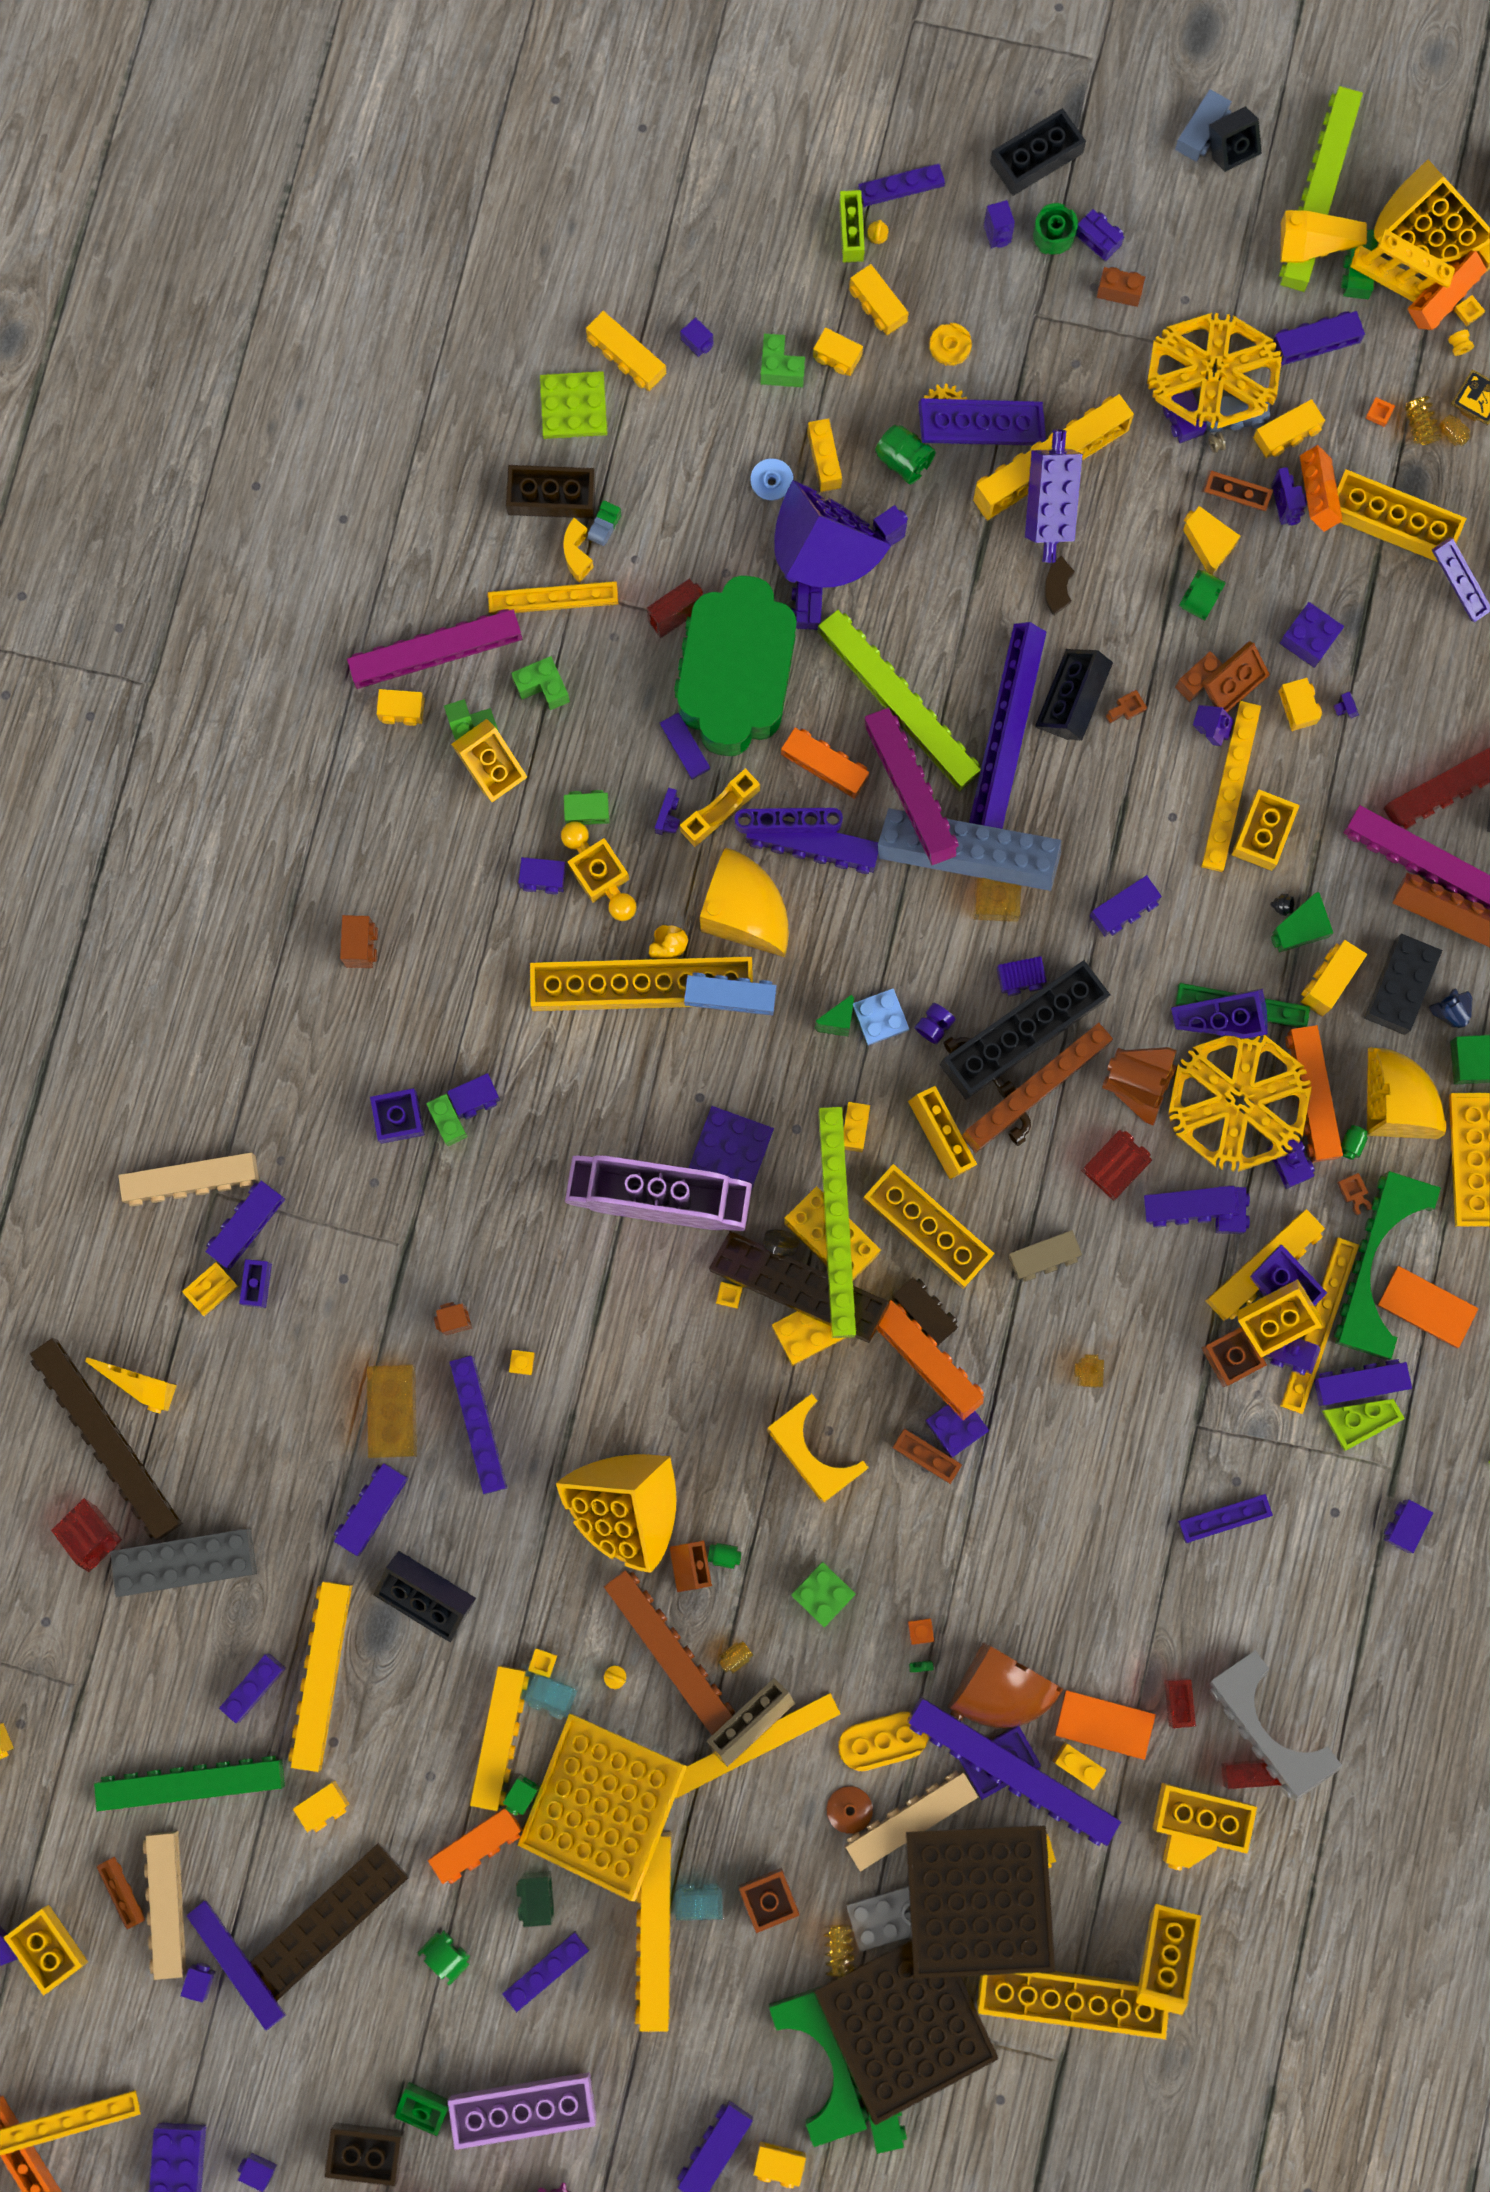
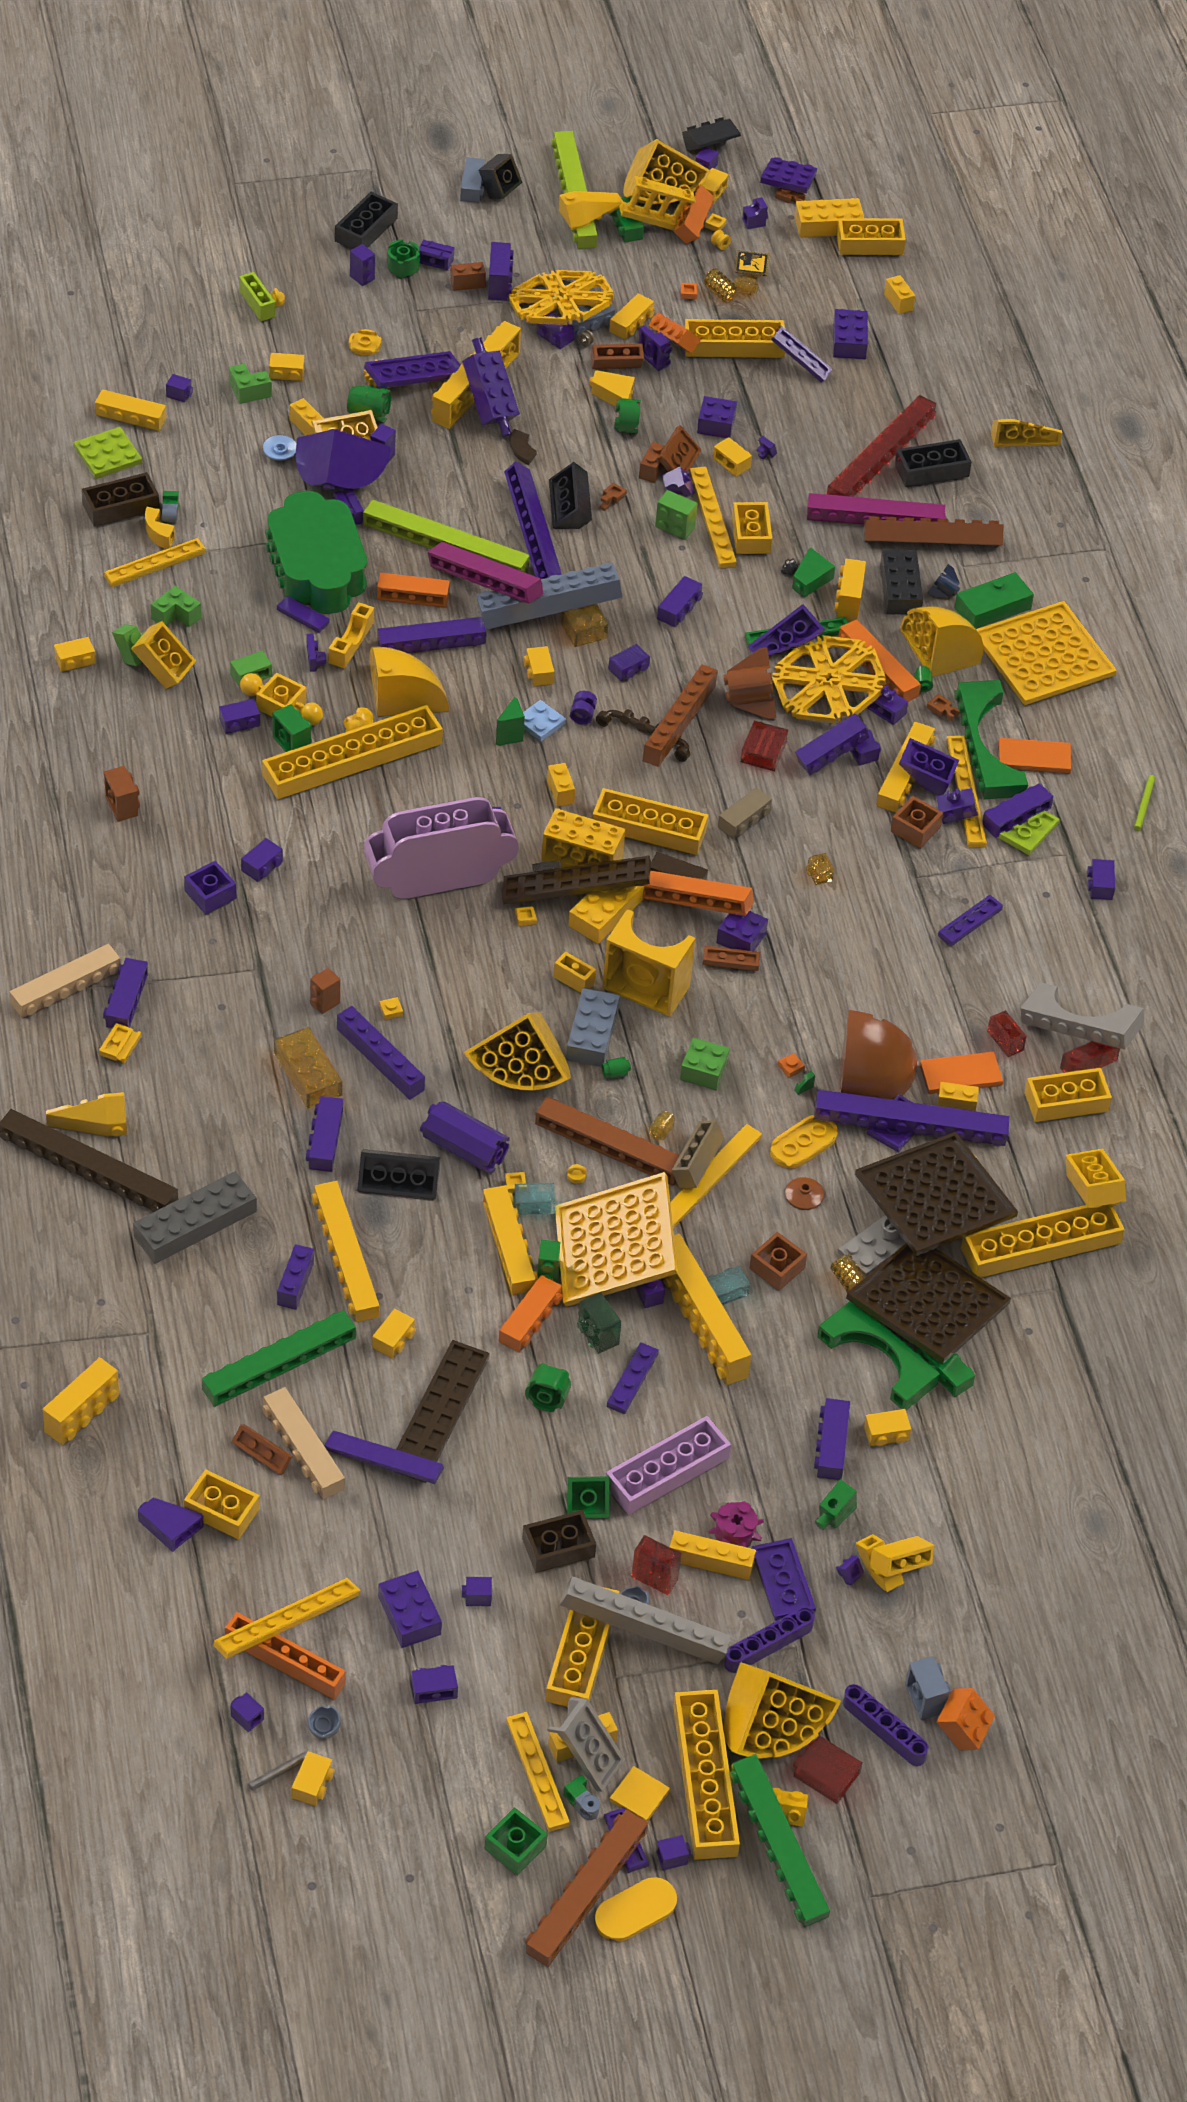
camera: 30 degrees left, 30 degrees down
(86, 1535) = (107, 1221): clear red brick -> none
(198, 1982) = (358, 1484): dark purple brick -> none
(255, 1283) = (156, 1023): dark purple brick -> none
(435, 648) = (82, 614): magenta brick -> none
(447, 1120) = (250, 879): bright green brick -> none
(511, 1585) = (465, 1136): none -> dark purple brick
(585, 928) = (290, 728): none -> green brick
(673, 608) = (250, 534): clear red brick -> none
(690, 1566) = (594, 1080): dark orange brick -> none
(724, 1490) = (592, 1027): none -> sand blue brick
(730, 994) = (425, 726): medium blue brick -> none
(739, 1408) = (574, 972): none -> yellow brick
(798, 814) = (407, 620): dark purple beam -> none
(836, 1222) = (584, 815): lime brick -> none
(860, 489) = (358, 424): none -> yellow wedge
(878, 300) = (299, 331): yellow brick -> none
(901, 185) = (282, 267): dark purple plate -> none
(916, 938) = (539, 666): none -> yellow brick
(917, 1816) = (846, 1186): tan brick -> none
(942, 1132) = (627, 765): yellow brick -> none
(1024, 1029) = (650, 685): black brick -> none
(1161, 298) = (500, 271): none -> dark purple brick
(1183, 776) = (676, 514): none -> bright green brick
(1185, 1852) = (1067, 1122): yellow slope -> none
(1279, 1318) = (934, 775): yellow brick -> none
(1319, 338) = (624, 263): dark purple brick -> none

